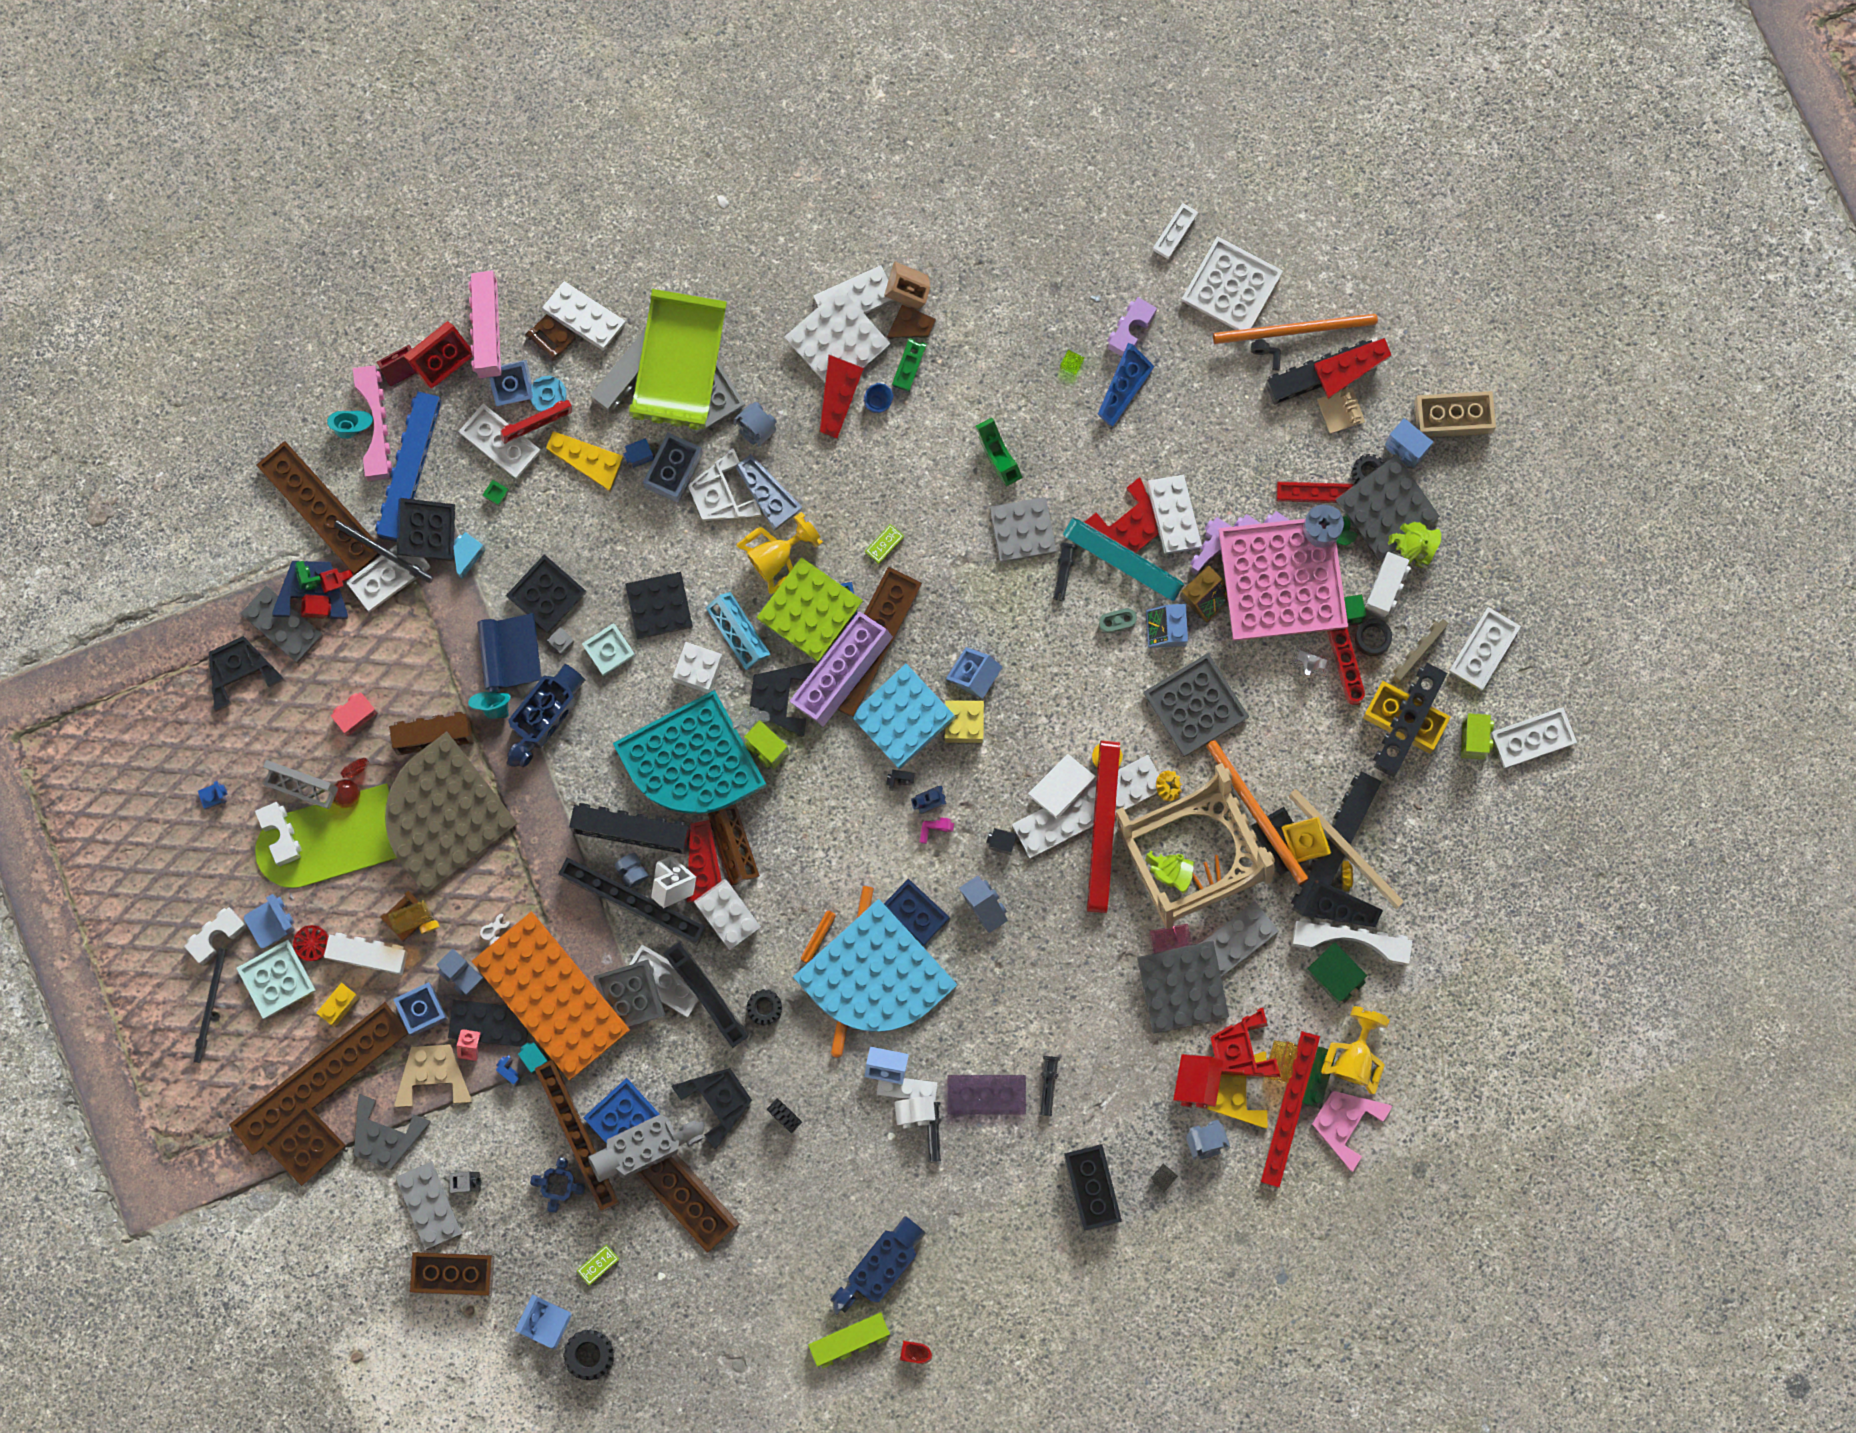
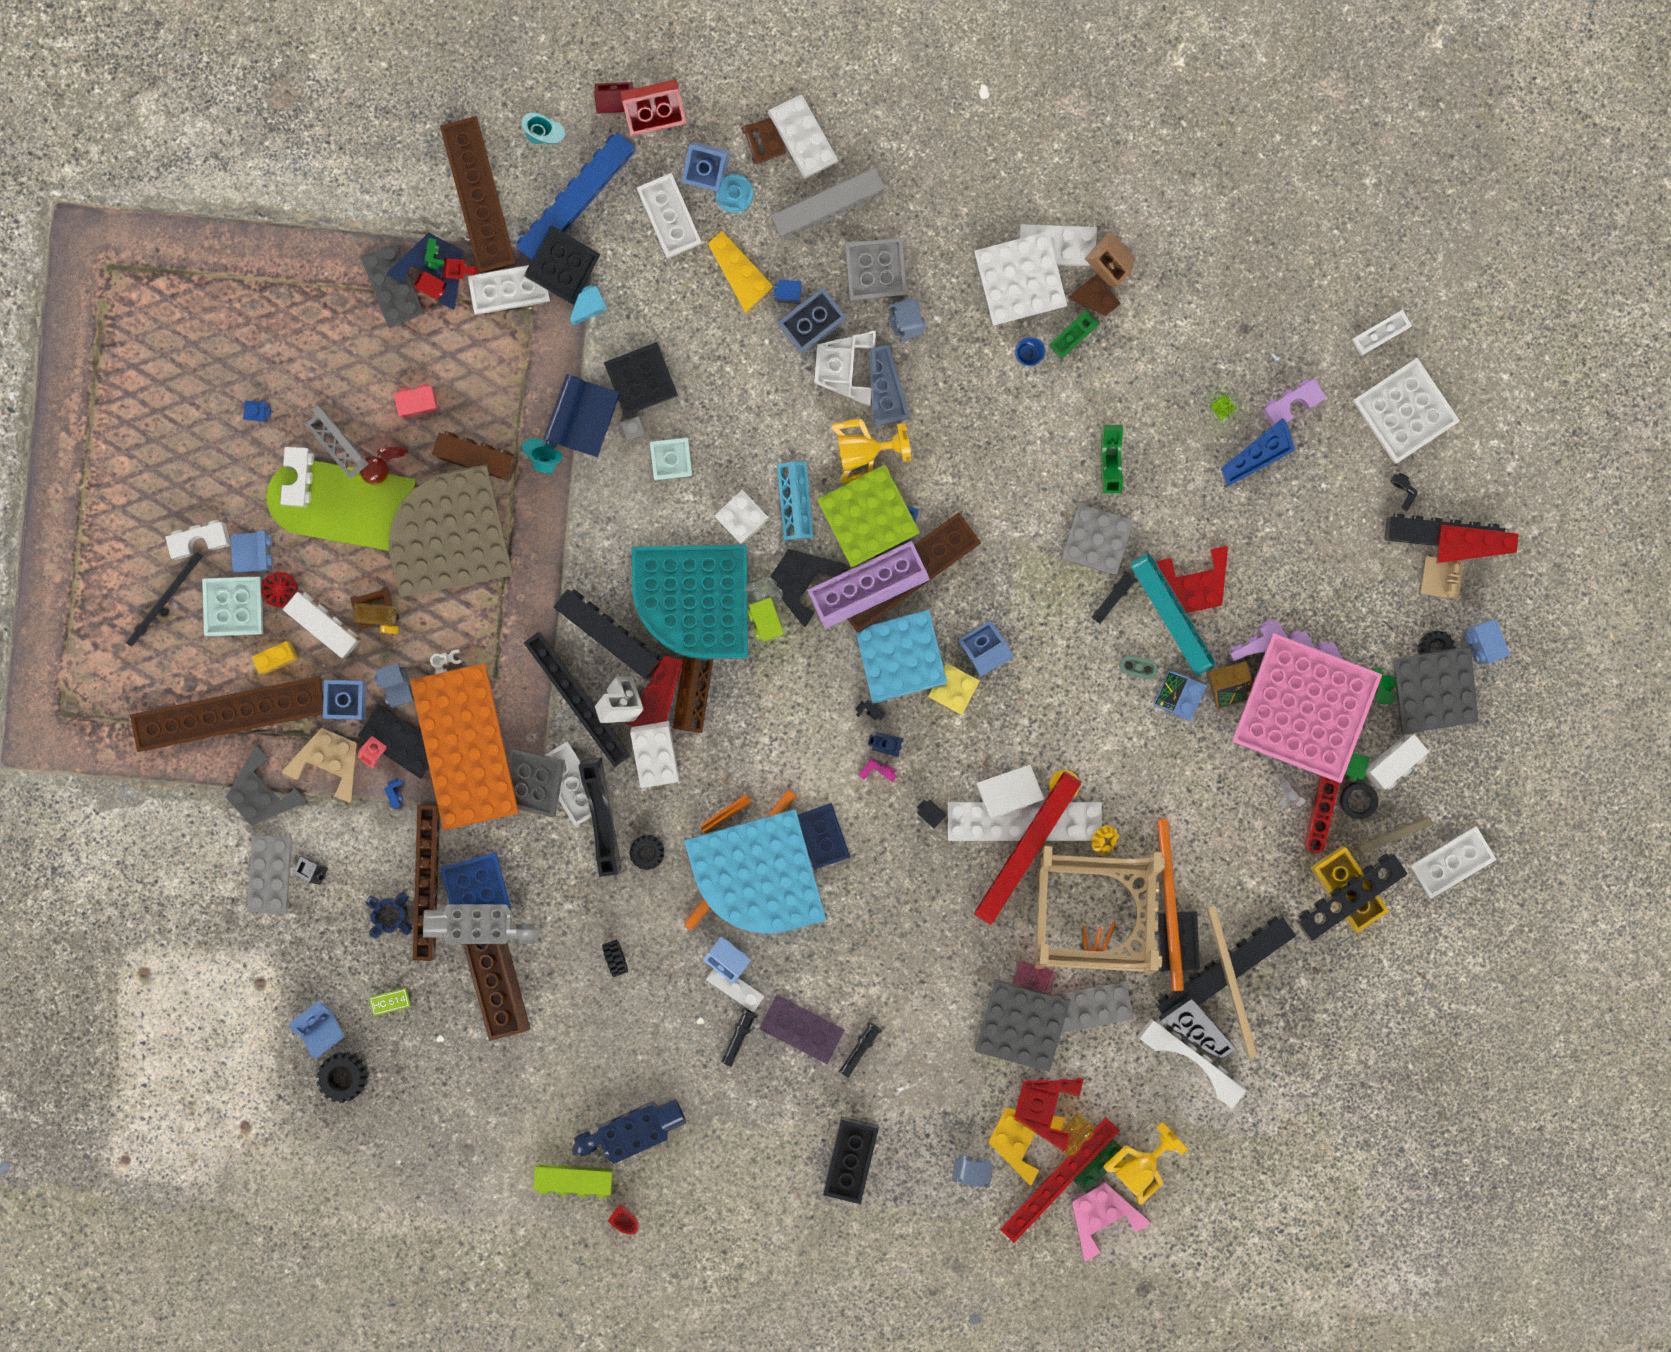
camera: 30 degrees right, 10 degrees up
(233, 663) = (333, 299): black wing -> none
(303, 1144) = (185, 765): reddish brown plate -> none
(376, 459) = (550, 176): bright pink arch -> none
(414, 570) = (533, 297): black bar -> none
(452, 1274) = (259, 946): reddish brown brick -> none
(485, 324) = (709, 100): bright pink brick -> none
(495, 492) = (642, 262): green plate -> none
(532, 1056) = (422, 792): teal brick -> none
(536, 421) = (737, 214): red plate -> none
(543, 713) = (583, 488): dark blue brick -> none
(631, 870) = (591, 670): sand blue wheel -> none
(659, 605) = (736, 441): black plate -> none
(678, 359) = (865, 225): lime panel -> none
(724, 1096) = (572, 912): black wing -> none
(839, 390) = (998, 326): red wing -> none
(884, 544) = (966, 488): lime tile -> none
(915, 1111) = (730, 1013): white brick -> none
(984, 903) = (886, 861): sand blue brick -> none
(1163, 1177) = (917, 1181): clear smoke panel -> none
(1172, 870) = (1067, 919): lime helmet -> none
(1174, 514) = (1240, 596): white plate -> none
(1196, 705) = (1167, 779): dark grey plate -> none
(1198, 1081) = (991, 1116): red brick -> none
(1295, 328) = (1441, 481): orange piece -> none
(1306, 839) = (1200, 955): yellow tile -> none
(1310, 491) = (1375, 638): red tile -> none
(1313, 529) = (1358, 685): sand blue brick -> none
(1337, 974) = (1164, 1083): dark green brick -> none
(1346, 876) = (1219, 1003): yellow gear -> none
(1417, 543) = (1445, 735): lime helmet -> none
(1455, 414) = (1544, 636): tan brick -> none
(1476, 736) = (1402, 939): lime brick -> none
(1533, 738) = (1452, 964): white plate -> none

